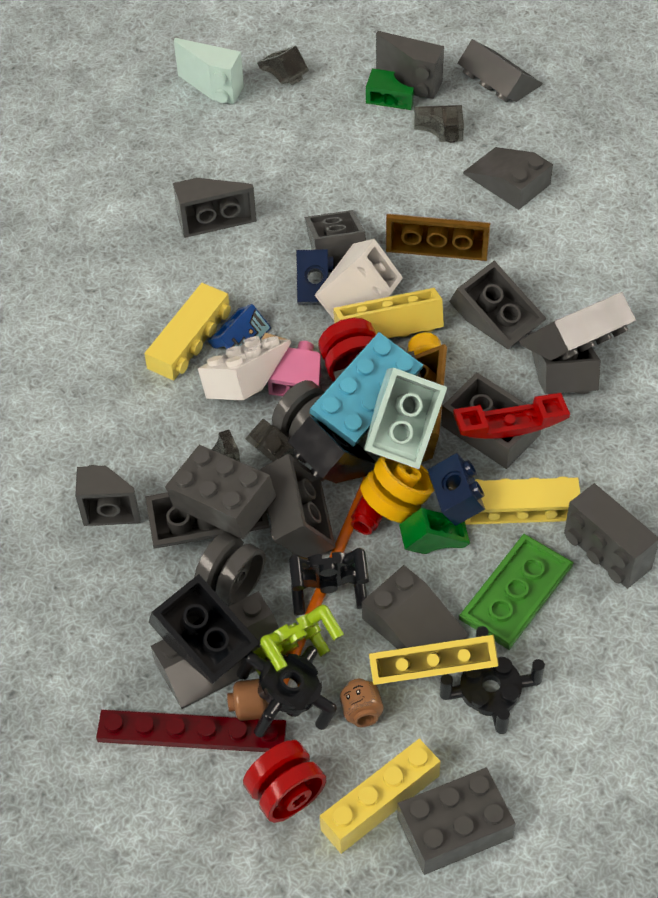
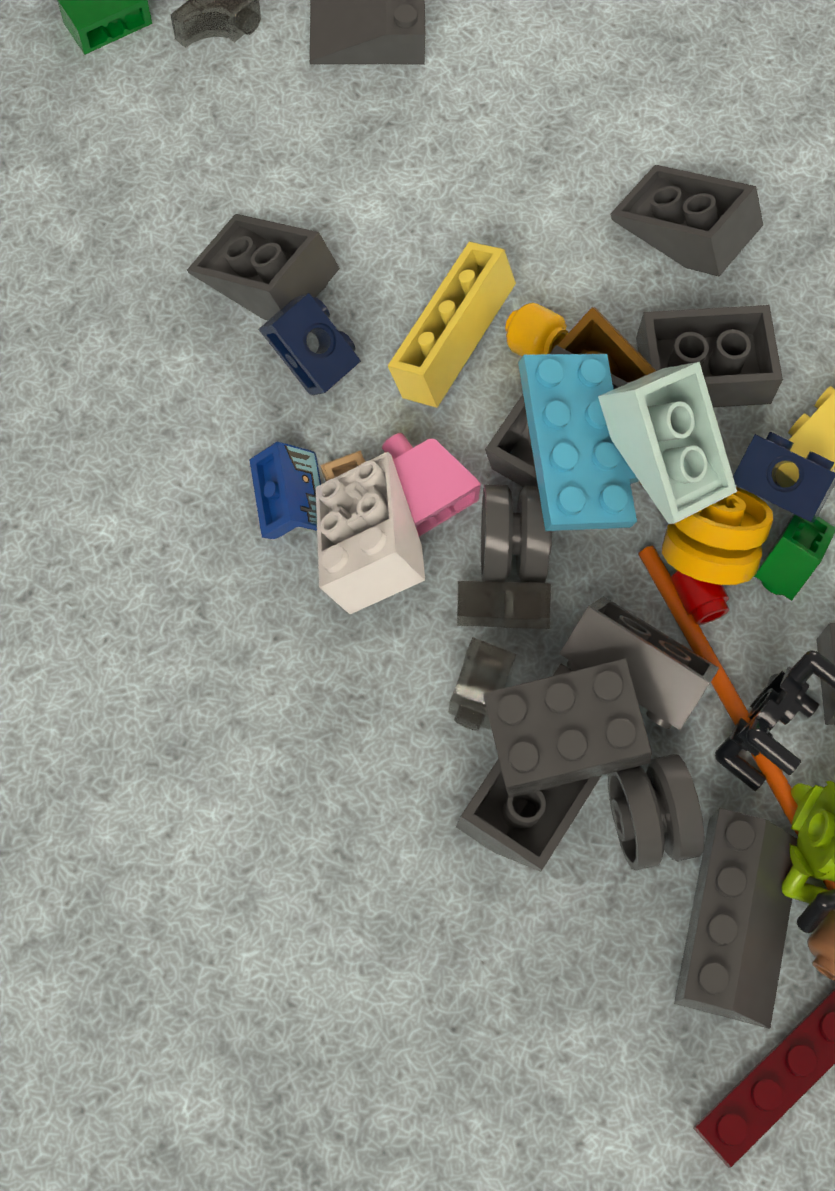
camera: 50 degrees left, 15 degrees up
(105, 497) = (399, 860): dark grey slope -> none
(187, 331) = (229, 545): light yellow brick -> none
(203, 629) = (745, 924): black slope -> none
(213, 205) = (67, 347): dark grey slope -> none
(329, 453) = (605, 563): black slope -> none
(344, 342) = (469, 404): red wheel -> none
(359, 277) = (373, 300): white slope -> none
(437, 237) = (387, 168): pearl gold slope -> none
(497, 306) = (550, 208): dark grey slope -> none
(512, 421) = (758, 334): red slope -> none
(581, 329) = (686, 165): slope -> none

